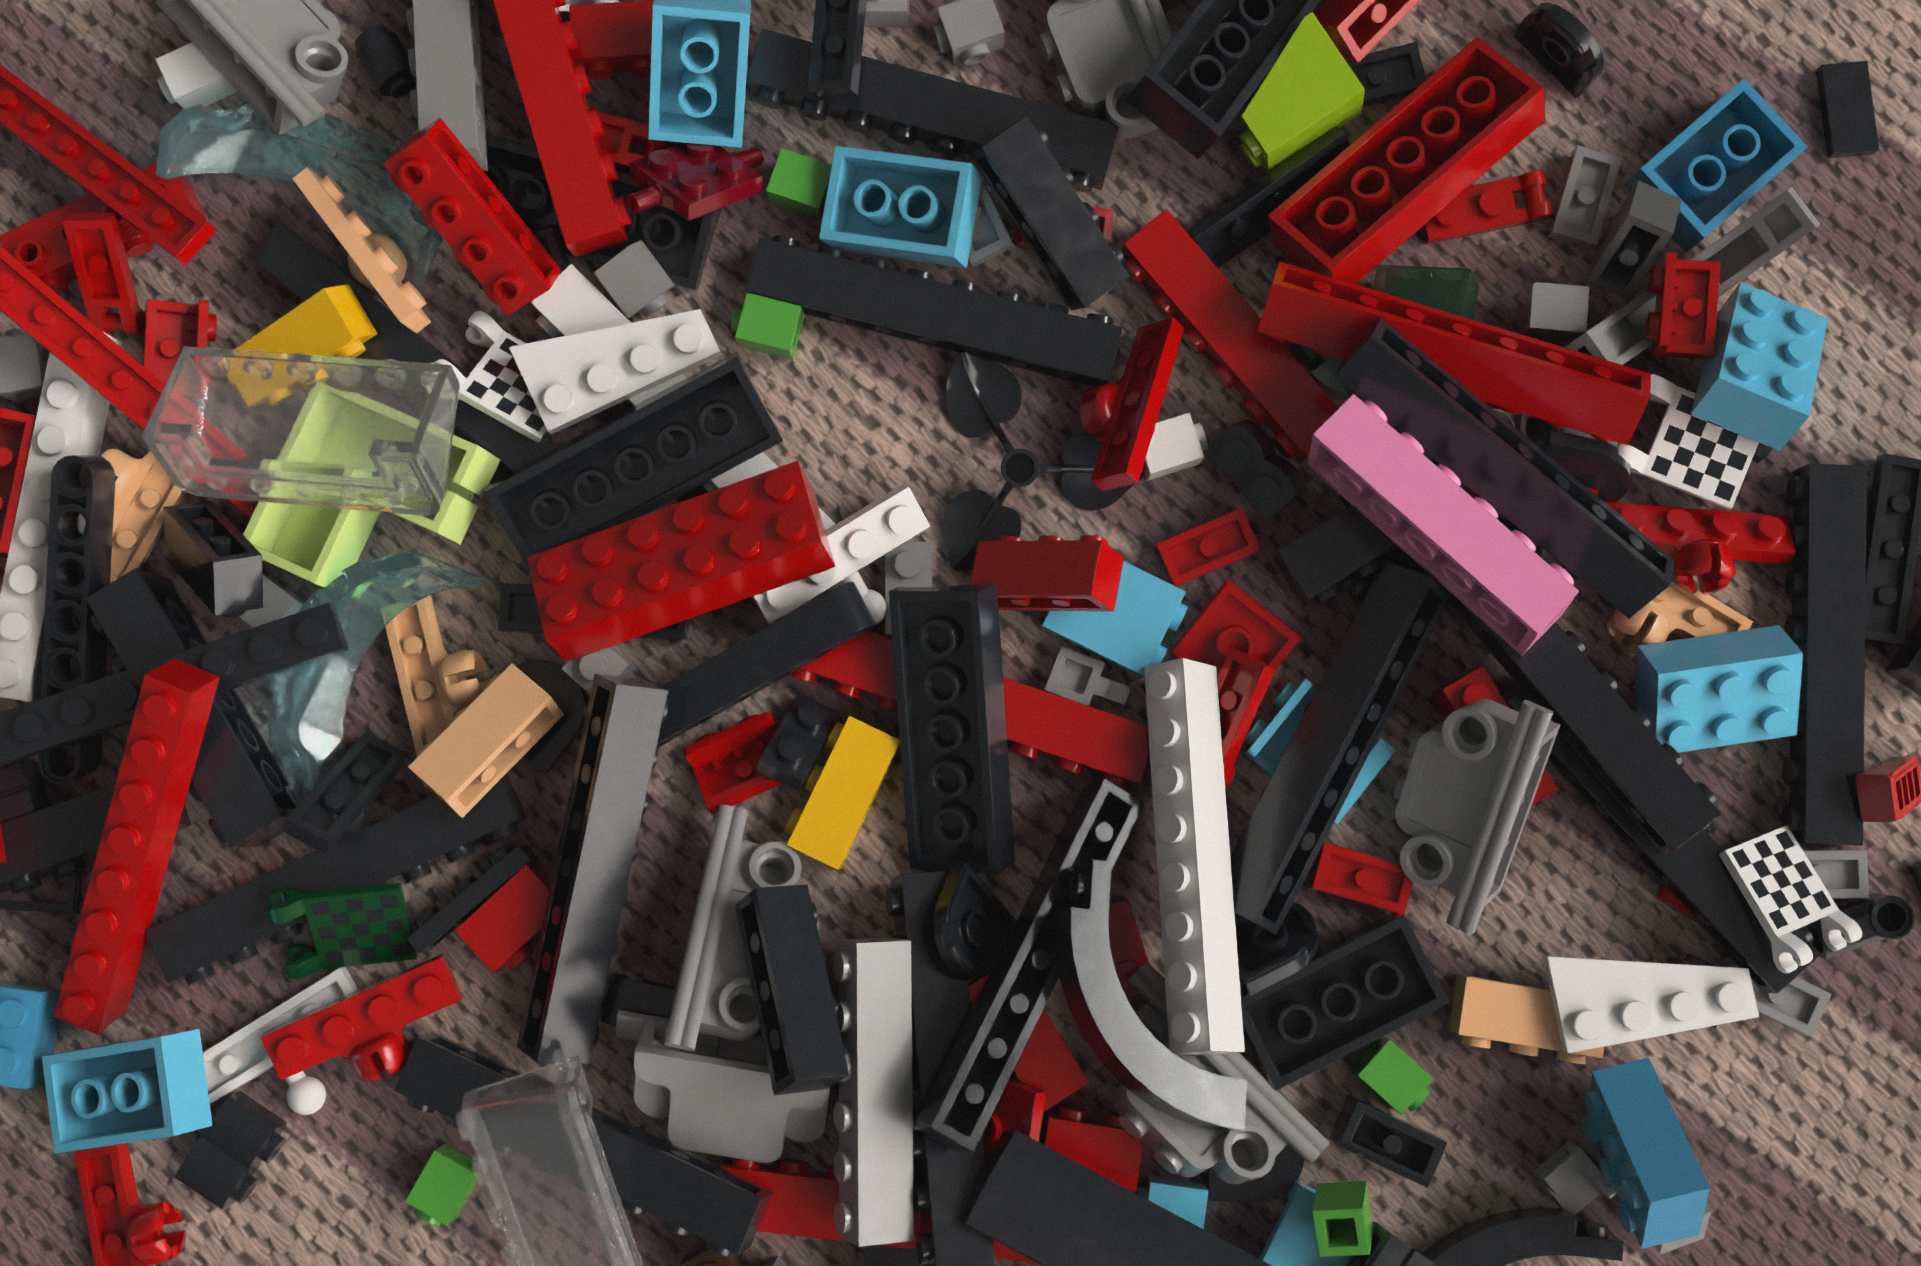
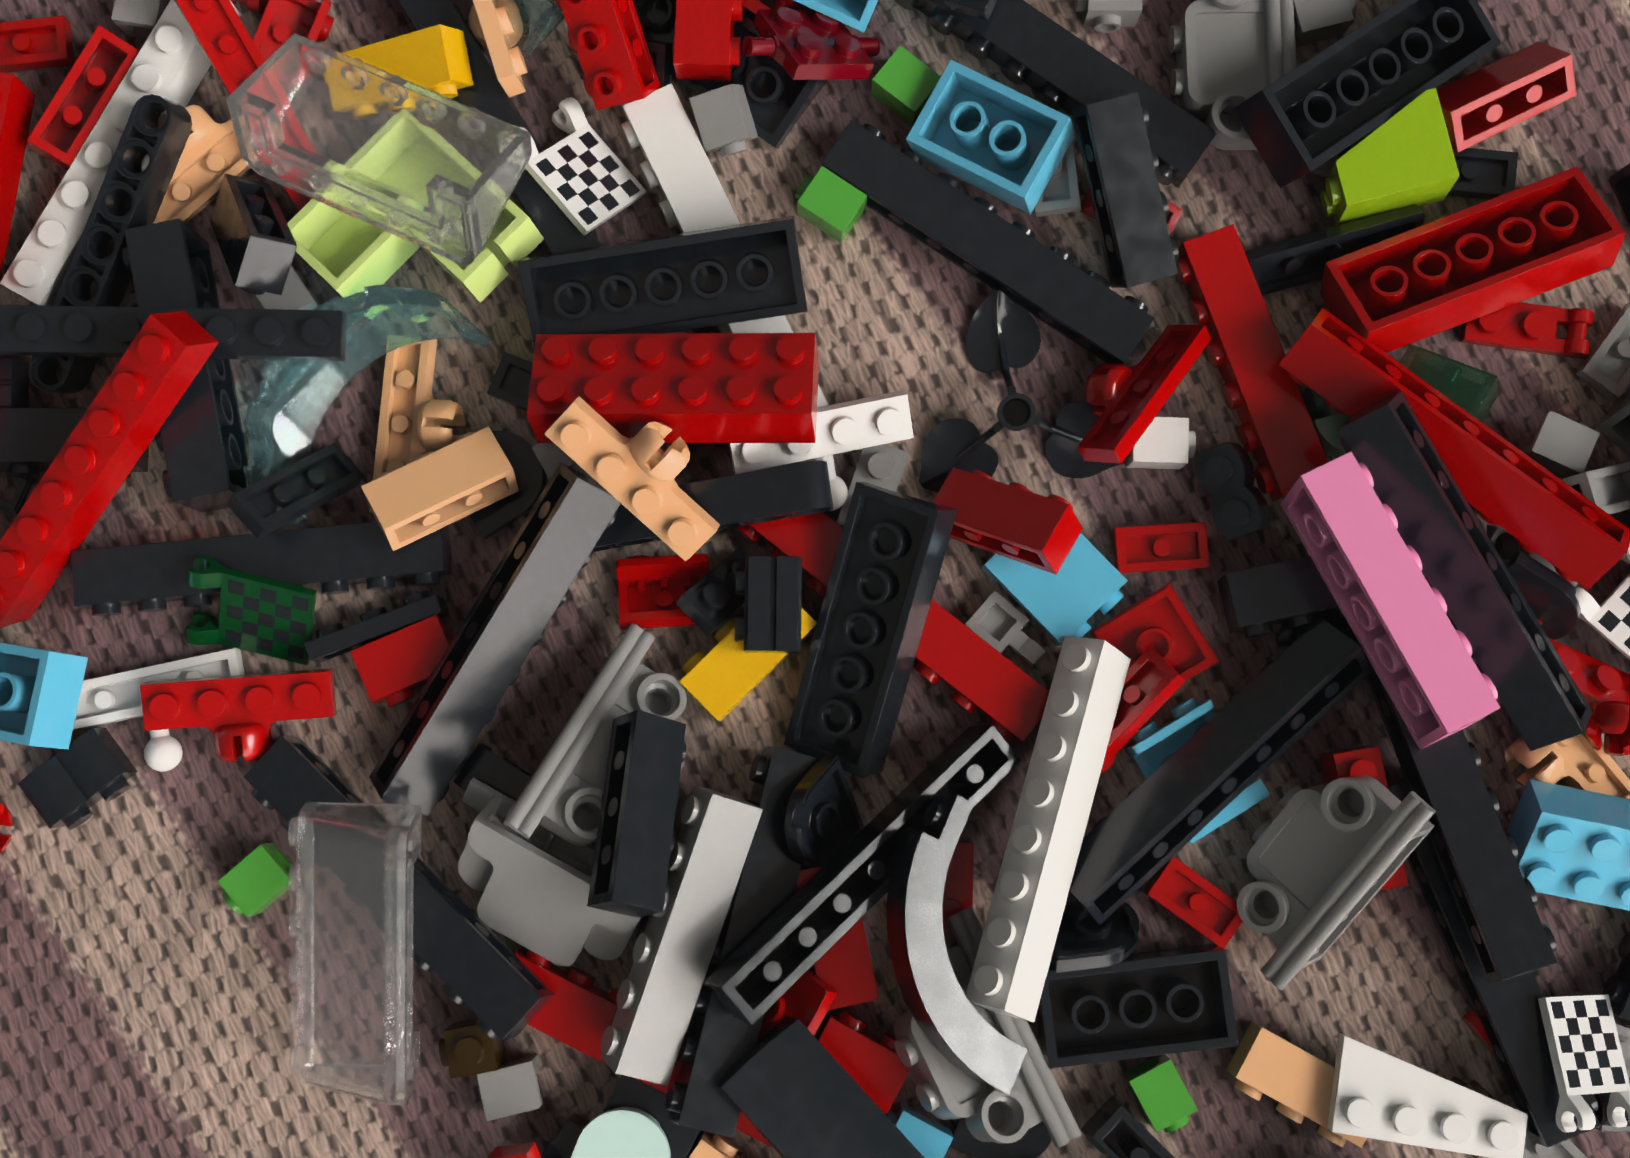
camera: 15 degrees right, 0 degrees up
(605, 366) = (670, 187): white wing -> none
(673, 659) = (637, 474): none -> light nougat plate
(848, 738) = (771, 604): none -> black brick

